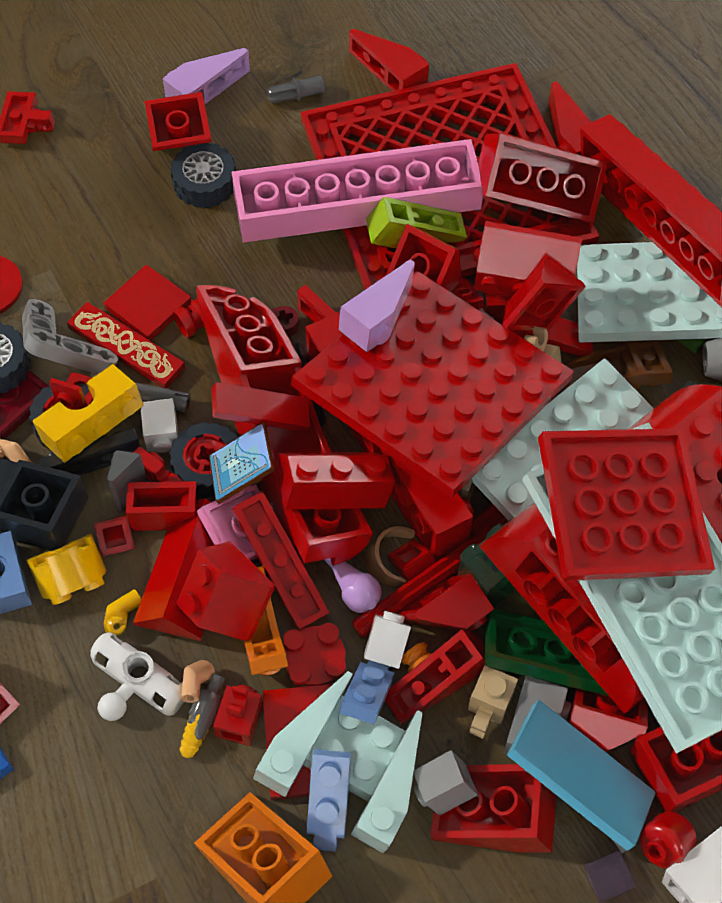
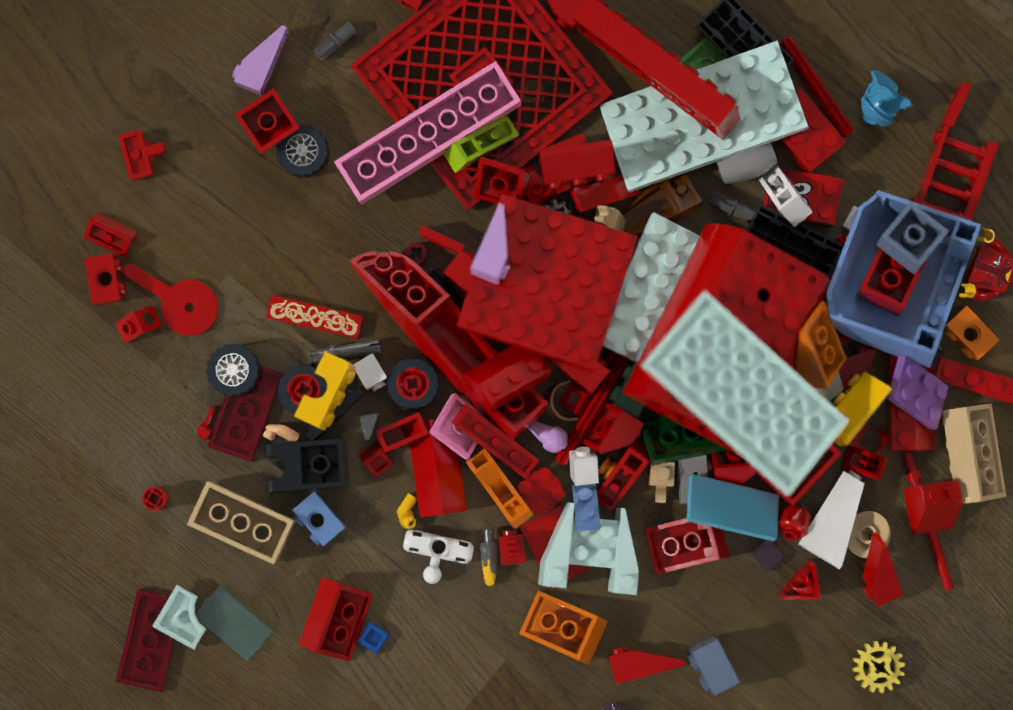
camera: 25 degrees left, 25 degrees up
(42, 341) = (304, 336): light grey beam -> none
(68, 569) = (362, 499): yellow cylinder -> none
(69, 393) = (308, 383): red bracket -> none
(147, 302) = (313, 276): red tile -> none
(155, 467) = (379, 404): red plate -> none
(189, 318) = (347, 282): red wheel -> none
(193, 677) = (475, 536): light nougat arm -> none
(225, 592) = (475, 484): red slope -> none
(241, 463) = (444, 389): piece -> none
(260, 406) = (438, 346): red tile -> none
(328, 797) = (588, 579): medium blue hinge -> none
(444, 783) = (653, 543): light grey brick -> none
(541, 177) = (557, 72): red slope -> none
(542, 297) = (594, 189): red slope -> none
(624, 504) = (709, 360): red plate -> none

